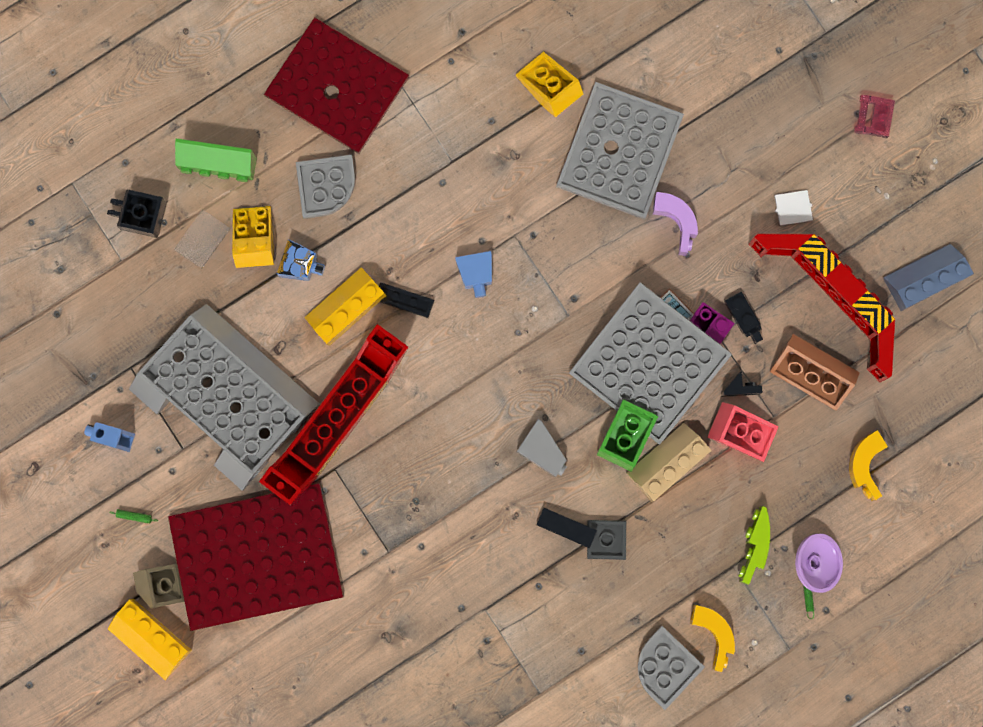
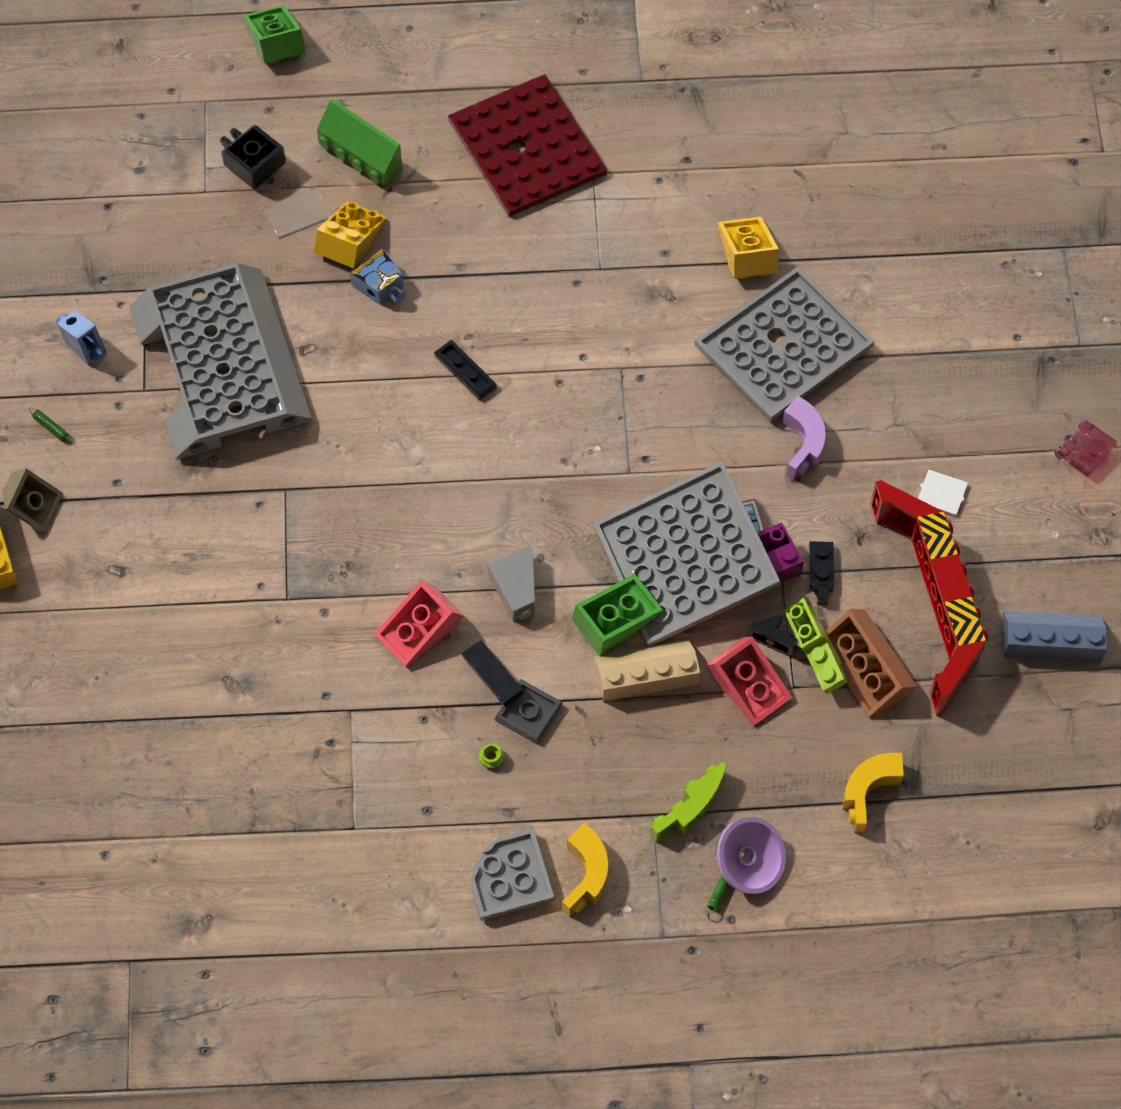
camera: 30 degrees right, 20 degrees down
(87, 95) = (275, 34): none -> bright green slope
(254, 558) = (146, 529): dark red plate -> none
(325, 185) = (455, 224): light grey plate -> none
(336, 416) = (322, 432): red slope -> none
(345, 306) = (400, 344): yellow slope -> none
(476, 271) = (558, 377): medium blue torso -> none
(494, 520) = (418, 623): none -> coral slope
(606, 592) = (491, 749): none -> lime plate
(777, 380) = (817, 645): none -> lime slope

